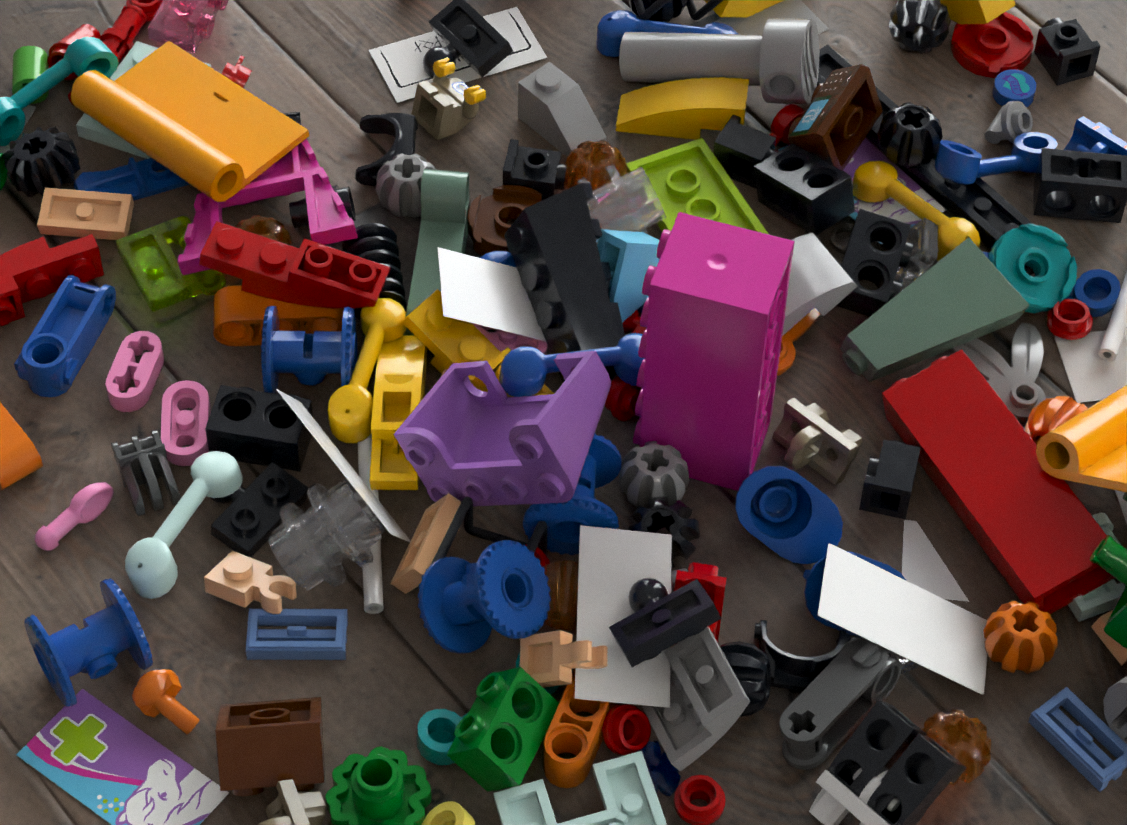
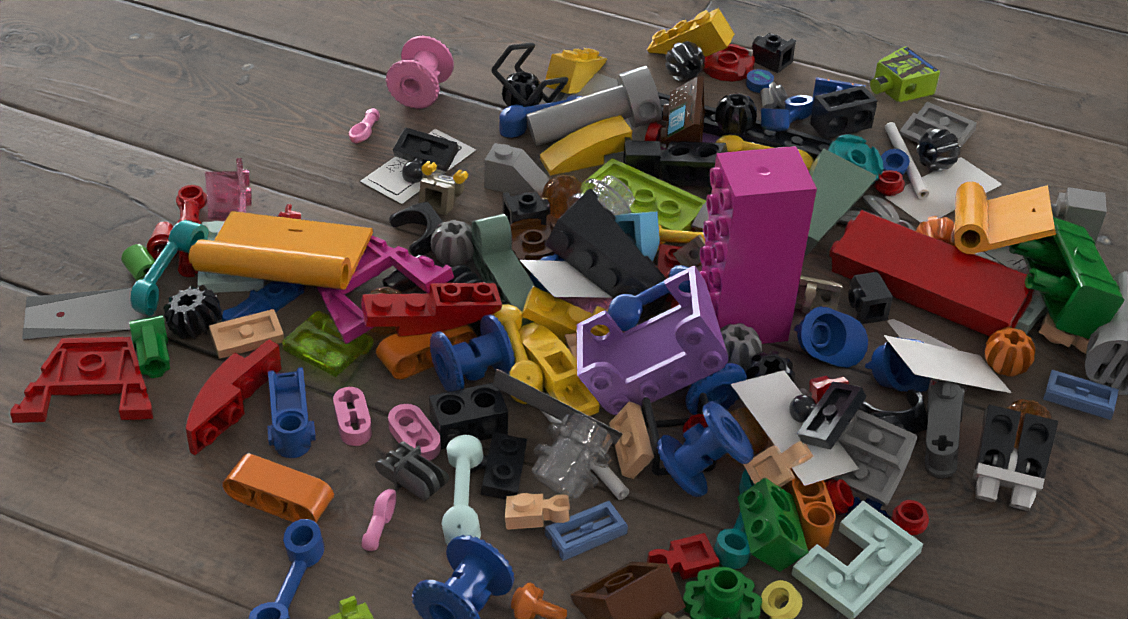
camera: 30 degrees left, 10 degrees down
(383, 723) = (687, 556): none -> red plate

